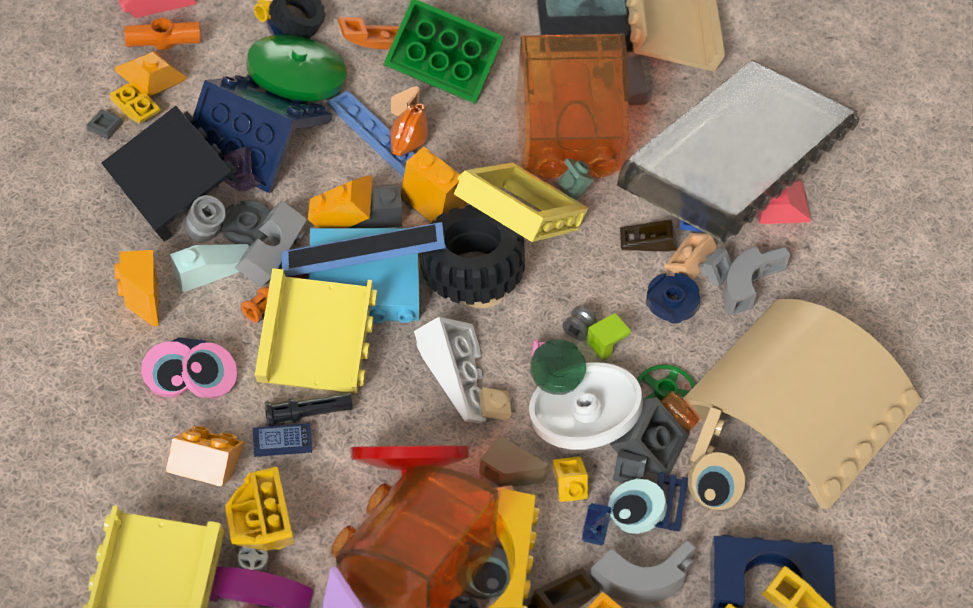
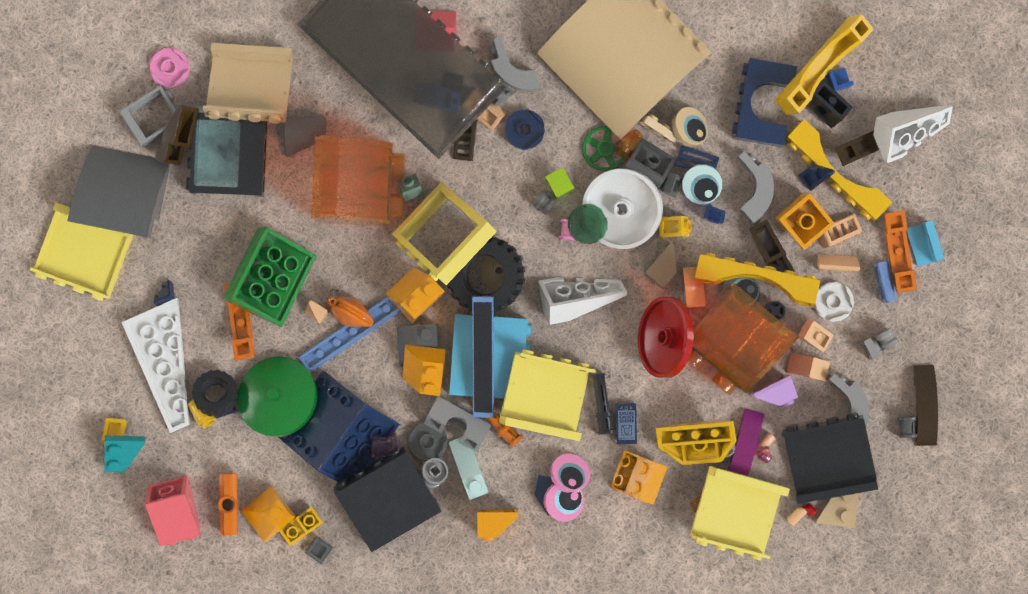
camera: 80 degrees left, 35 degrees up
(495, 404) = (609, 271): tan plate -> none

